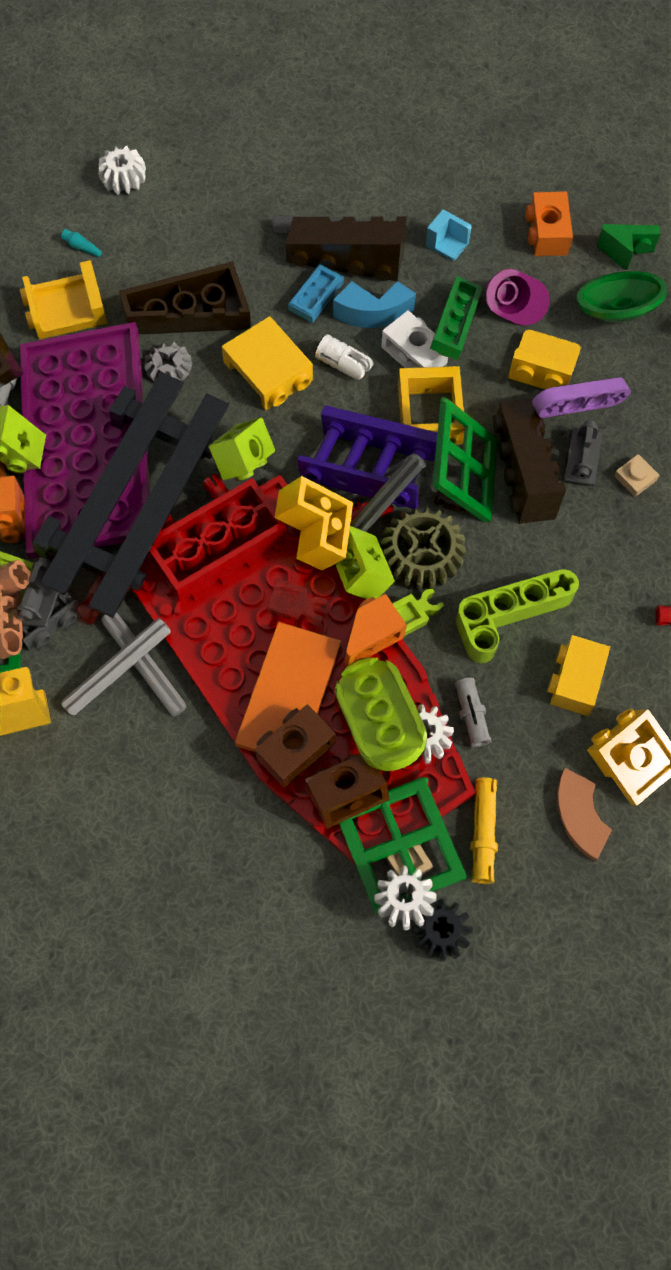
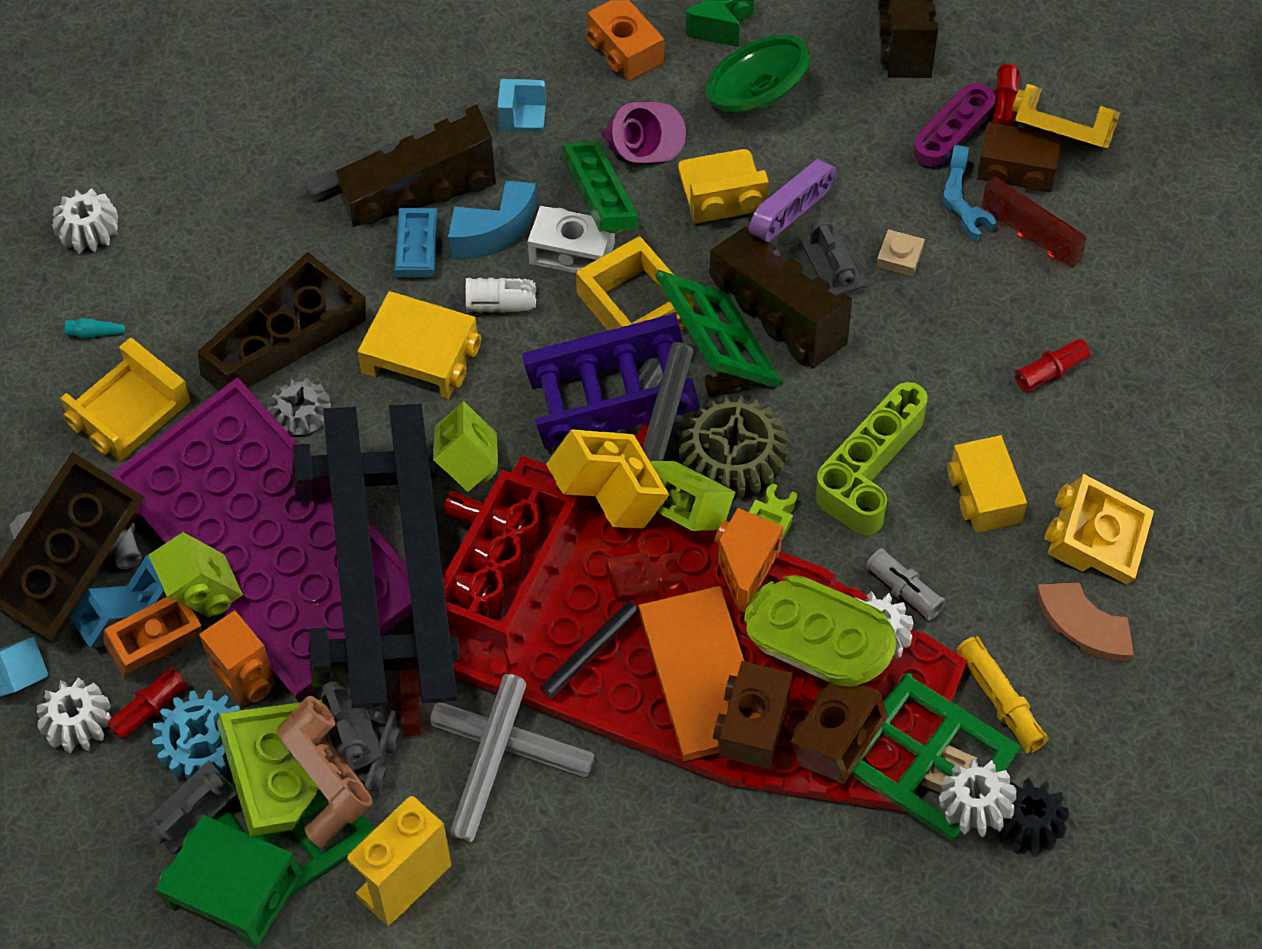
camera: 30 degrees left, 10 degrees down
(227, 633) = (589, 649): none -> black bar

